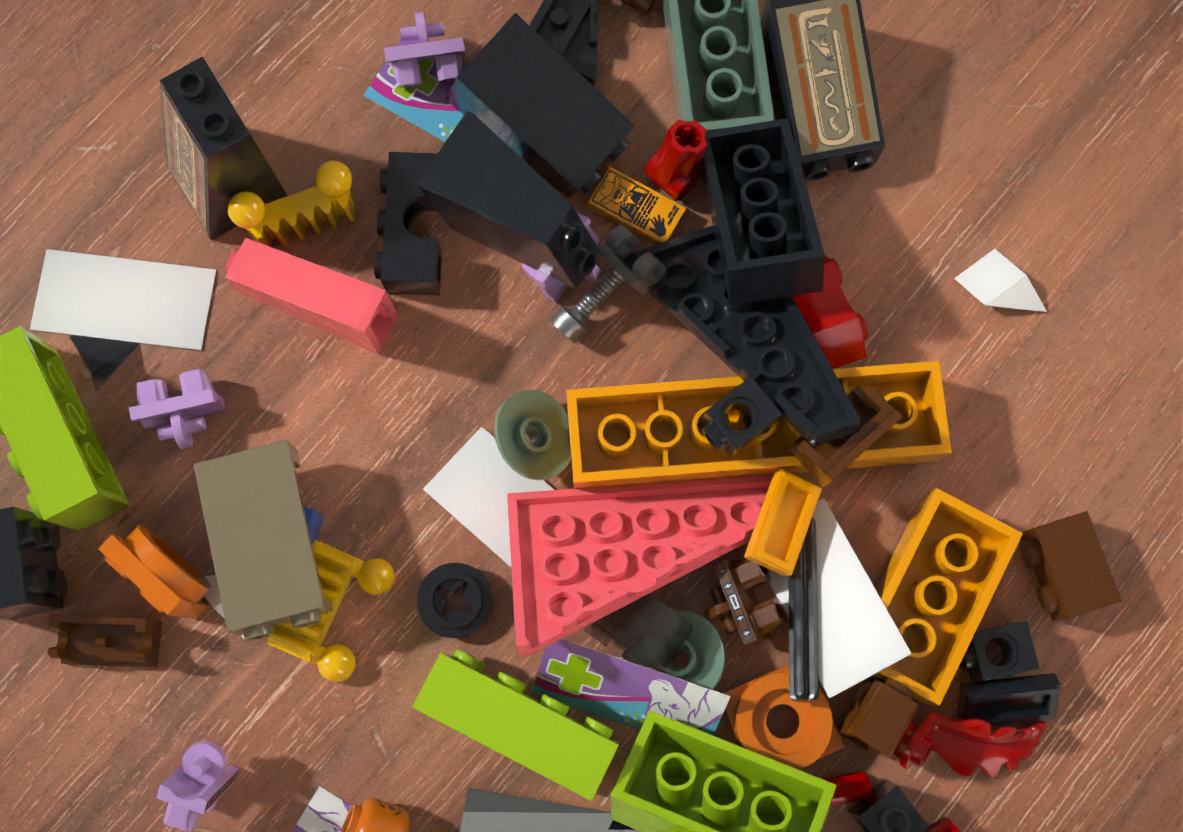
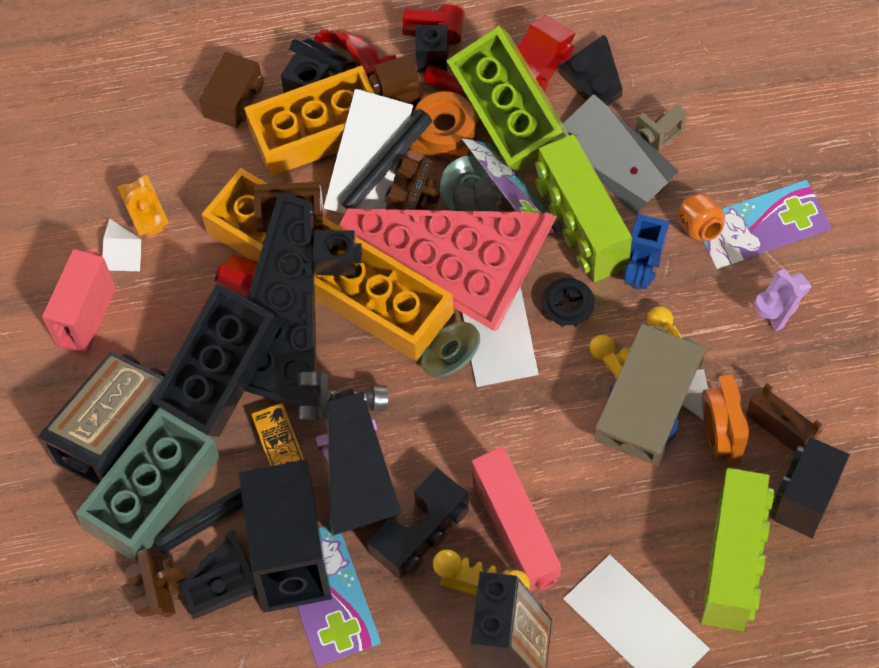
camera: 135 degrees left, 15 degrees down
(102, 355) = (674, 591): black sticker -> none
(157, 409) = (650, 514): lavender hips -> none
(406, 58) = (319, 628): lavender hips -> none
(411, 735) = (647, 248): none -> blue brick
(640, 65) = (199, 521): none -> black axle
(677, 161) = (233, 433): red piece -> none
(783, 522) = (358, 200): light orange tile -> none
(972, 171) = (79, 301): none -> coral brick
(1021, 338) = (143, 206): none -> light orange hips

